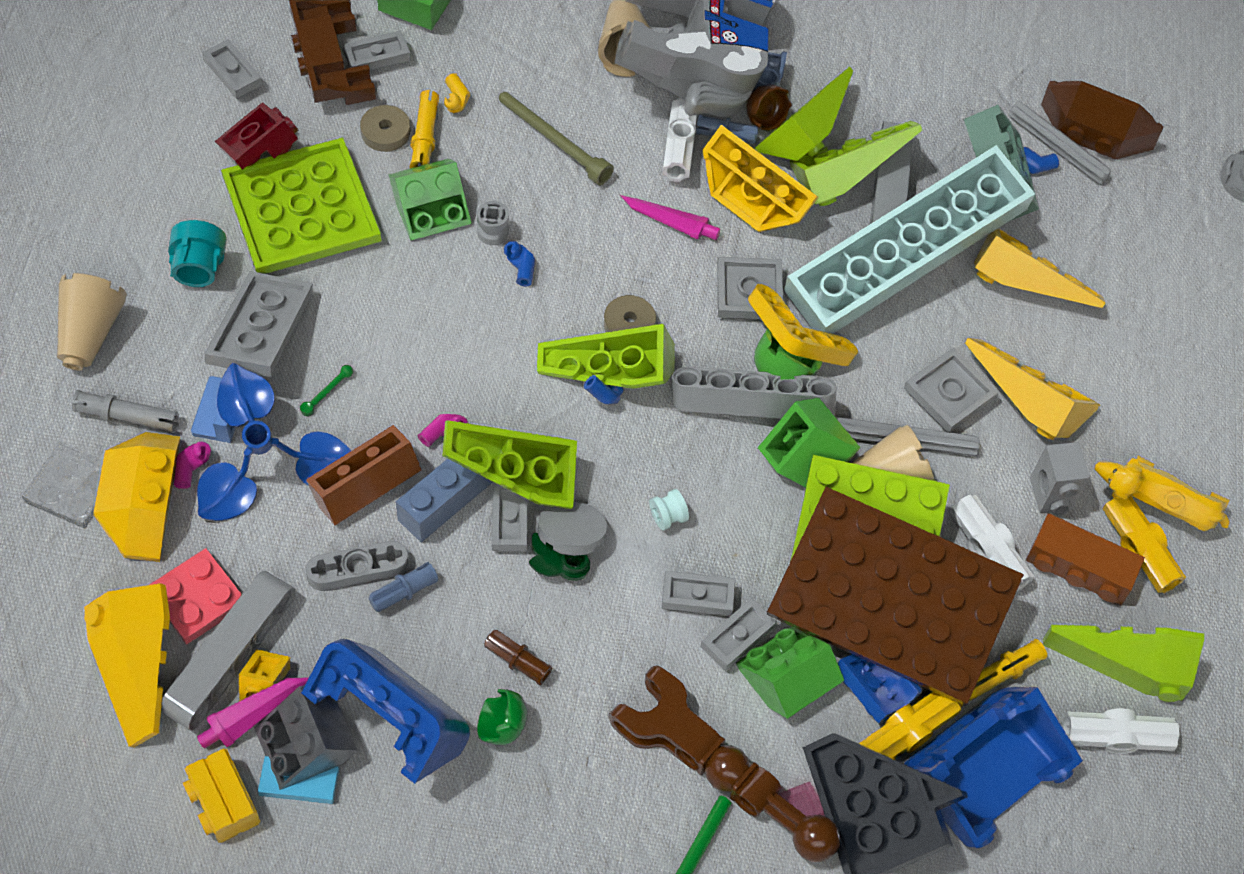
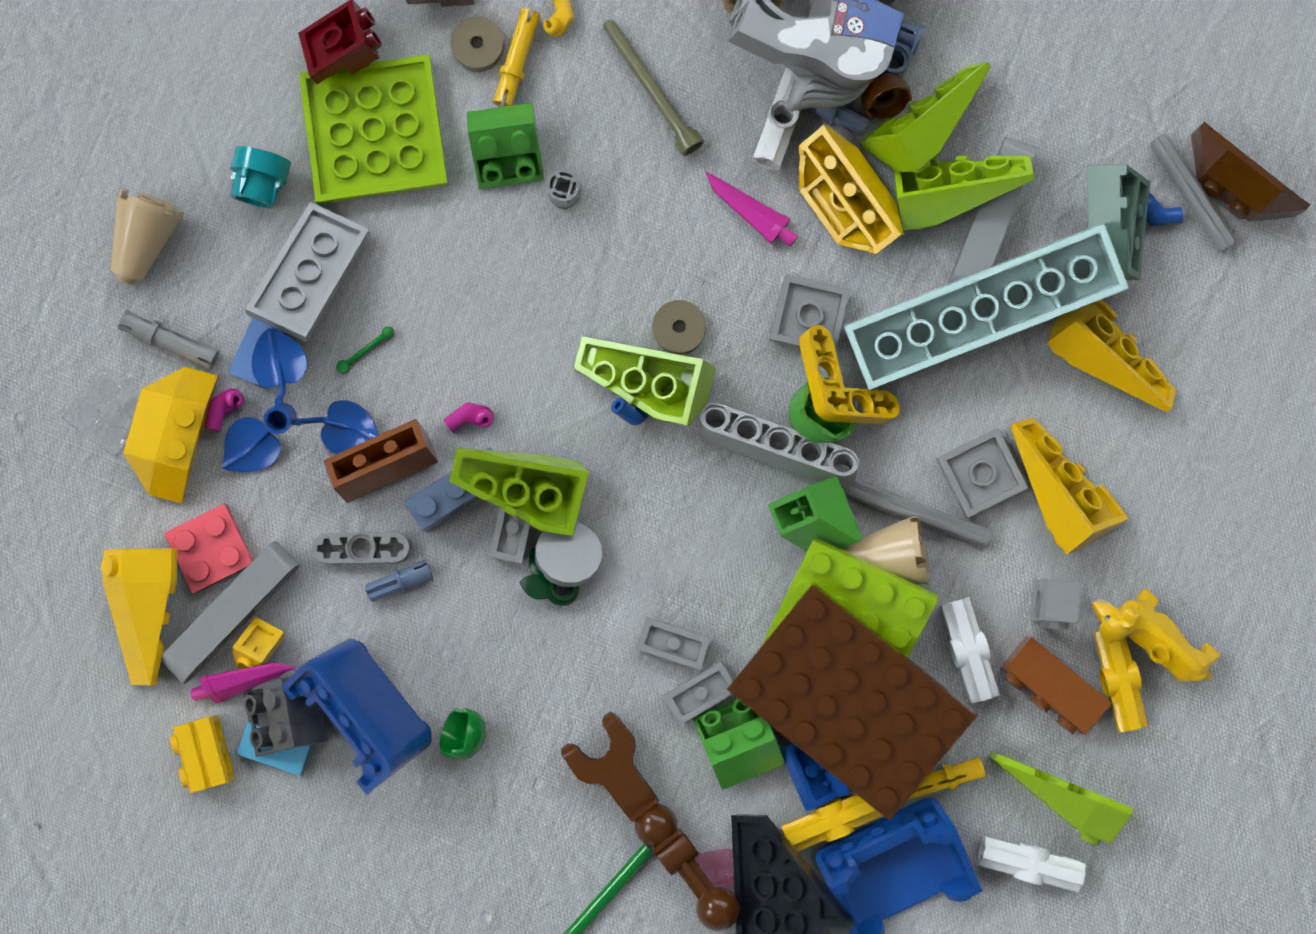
camera: 25 degrees right, 25 degrees up
(518, 656) = (491, 671): reddish brown axle -> none
(522, 260) = (586, 236): blue arm -> none
(669, 509) = (666, 551): light aqua wheel -> none

